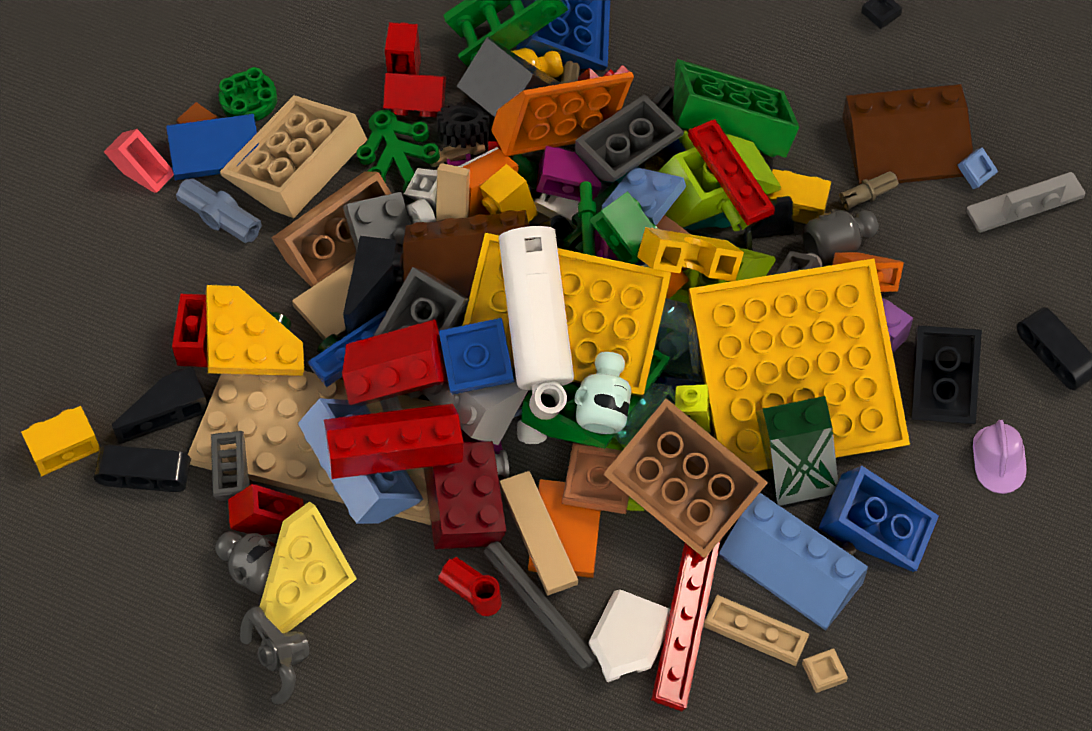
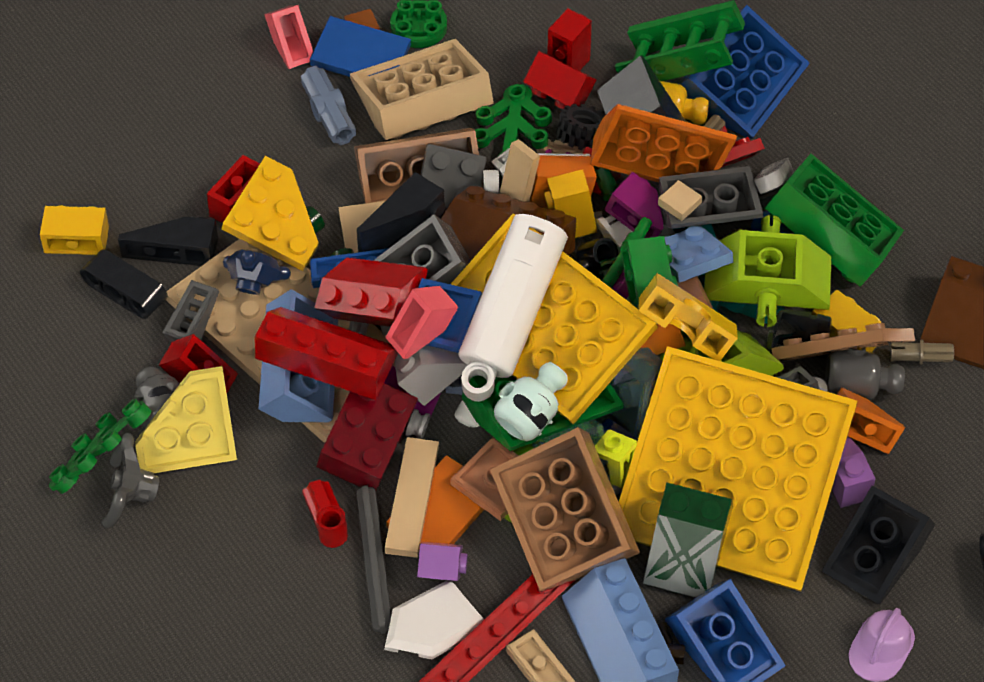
camera: 30 degrees right, 5 degrees down
(229, 632) = (106, 439): none -> green plant
(262, 397) = (254, 270): none -> dark blue rock
(467, 370) = (421, 320): none -> coral slope
(603, 577) = (441, 561): none -> medium lavender brick
(609, 152) = (680, 200): none -> tan tile
(661, 92) = (773, 175): none -> light grey beam
(731, 172) = (780, 267): red tile -> none
(818, 210) = (820, 344): none -> medium nougat wing

